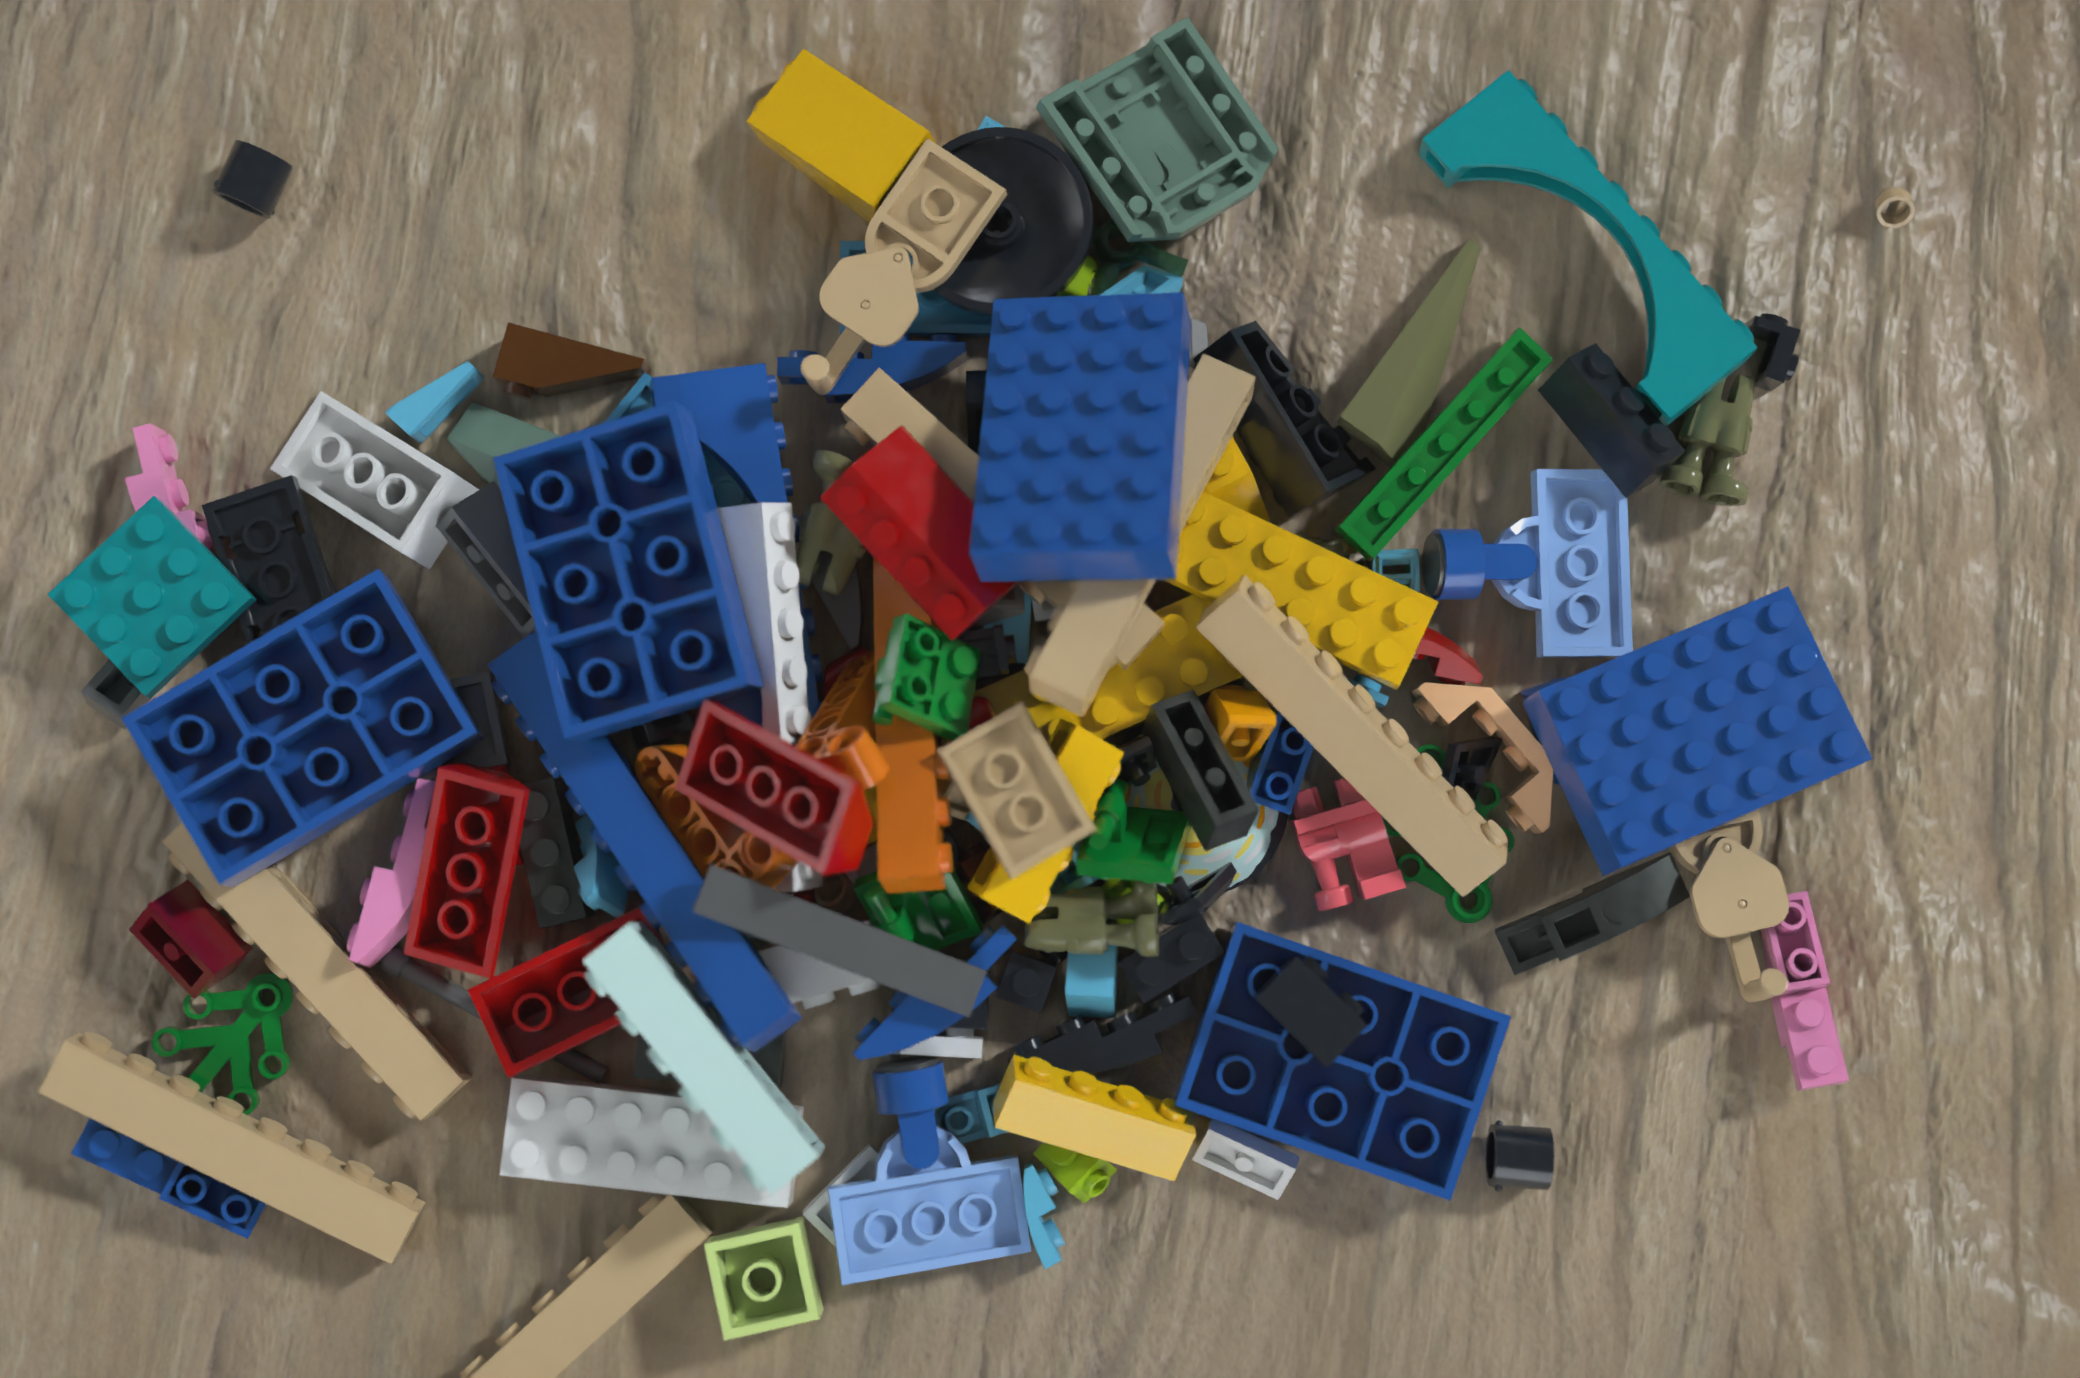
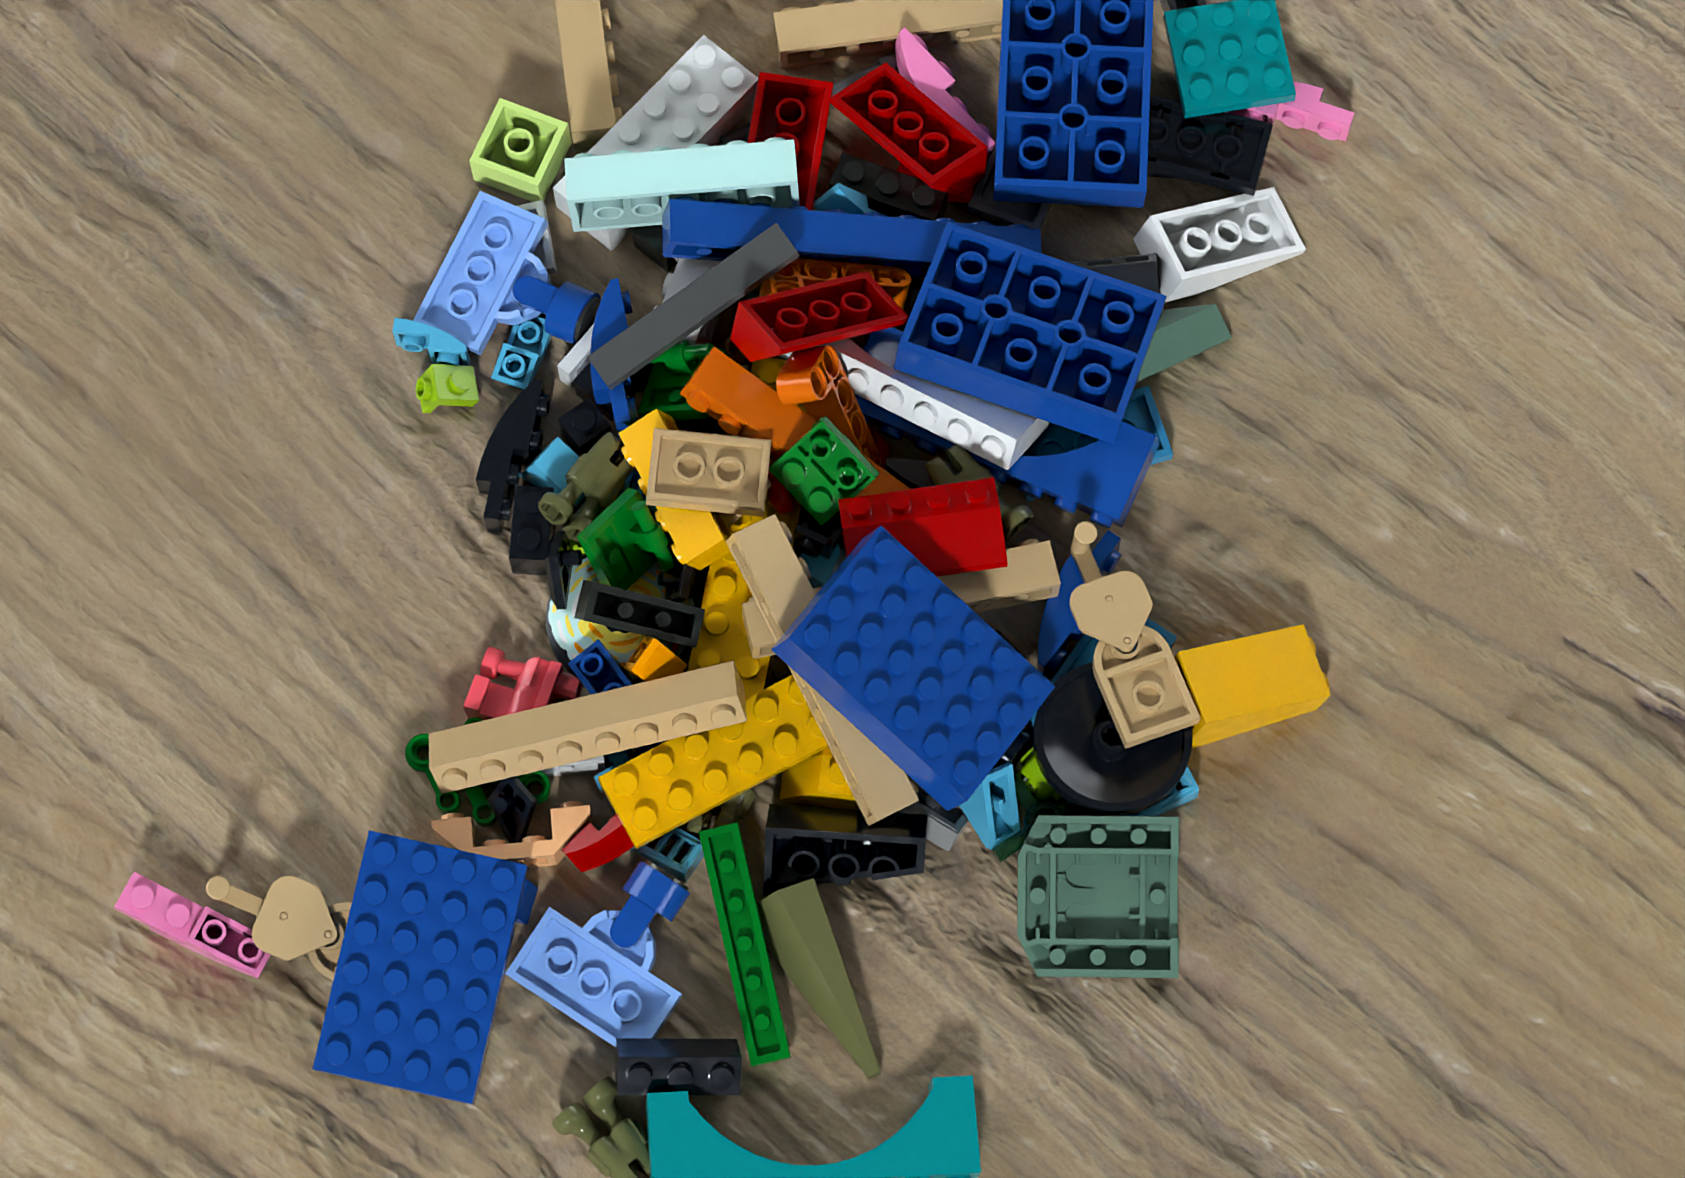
camera: 130 degrees right, 15 degrees down
(252, 179) = (1480, 289): black piece -> none
(431, 405) = (1244, 304): medium azure slope -> none
(558, 365) = (1223, 396): reddish brown slope -> none
(1093, 1117) = (465, 408): yellow brick -> none
(1245, 1158) = (368, 492): white plate -> none
(1311, 1010) = (430, 576): black brick -> none
(1387, 1105) = (384, 590): blue brick -> none
(1519, 1157) = (233, 663): black piece -> none
(1594, 915) = (350, 819): pearl dark grey slope -> none

